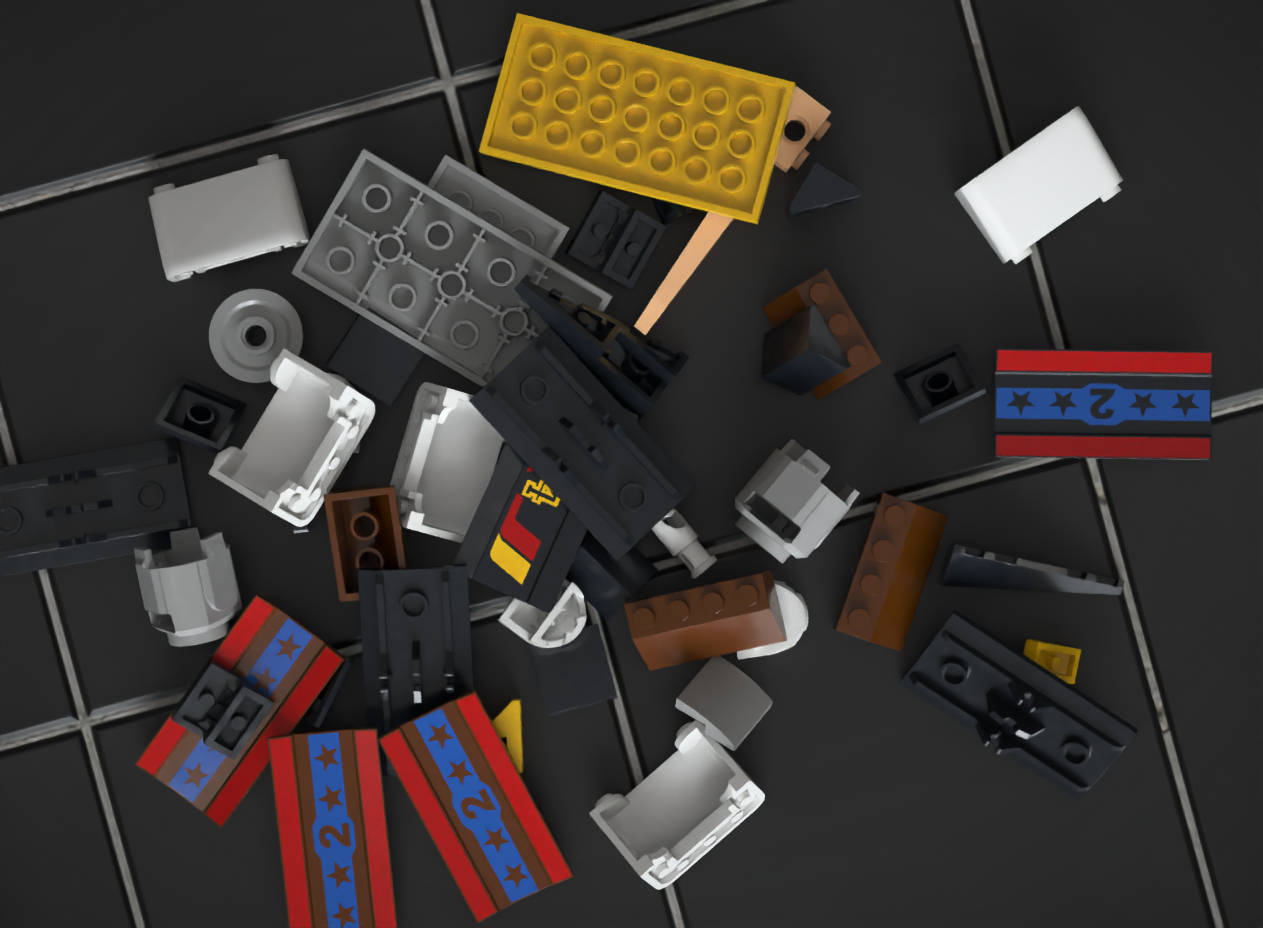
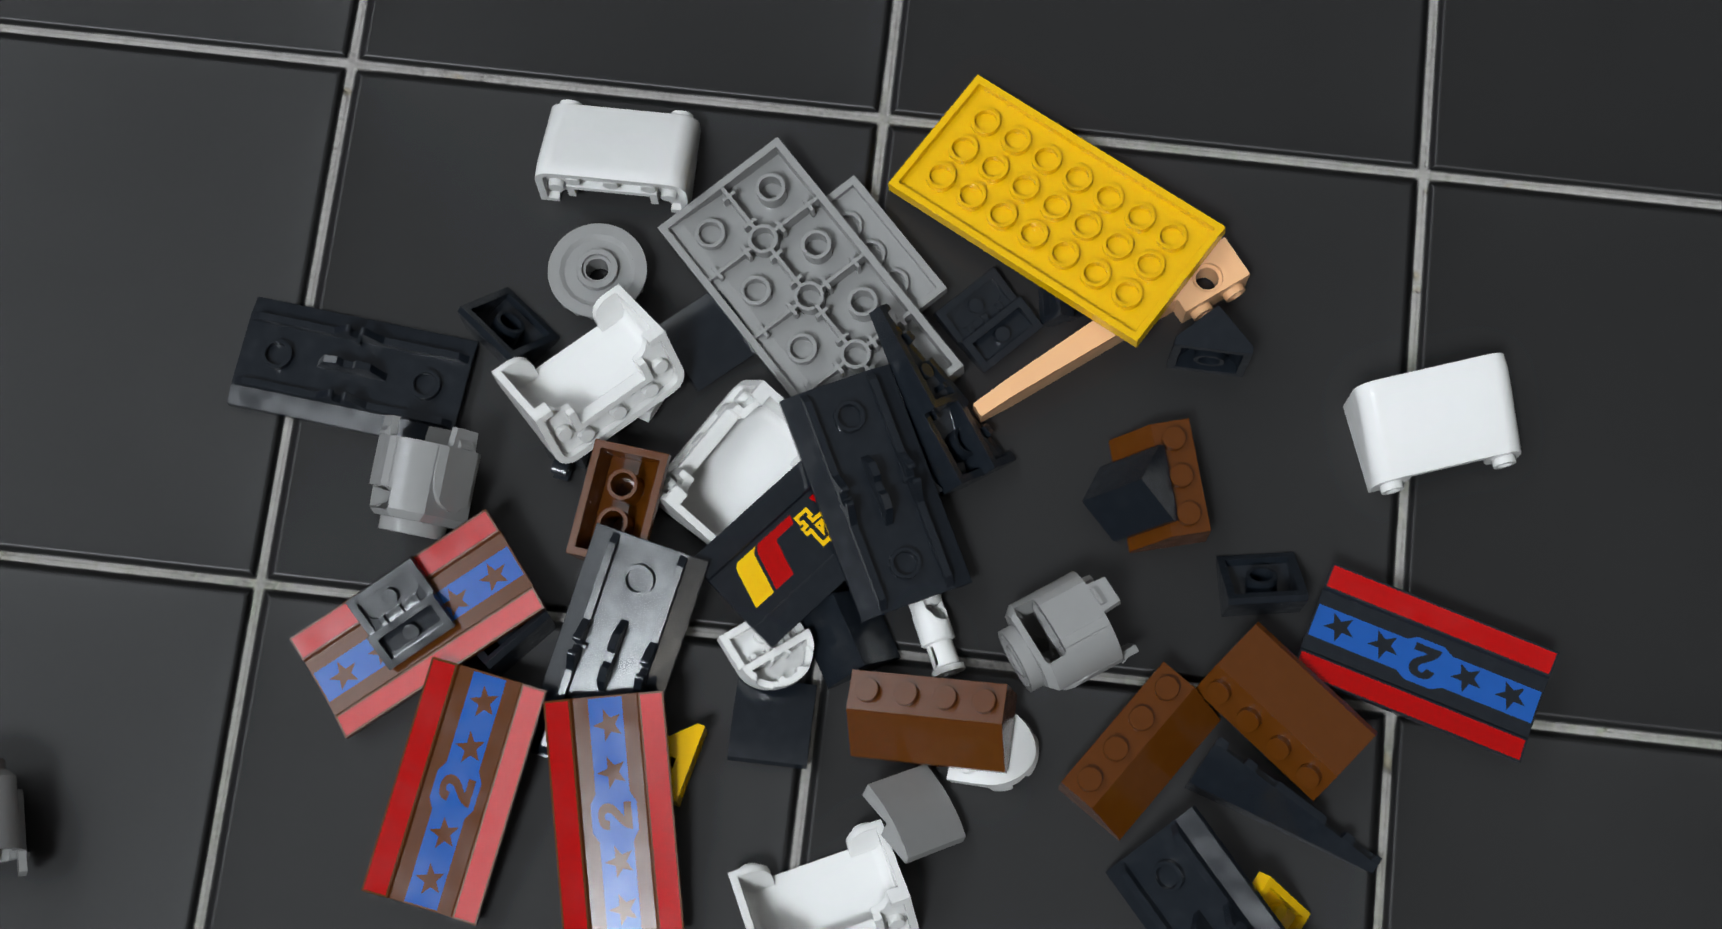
camera: 15 degrees right, 15 degrees down
(1001, 493) = (1286, 711): none -> reddish brown slope

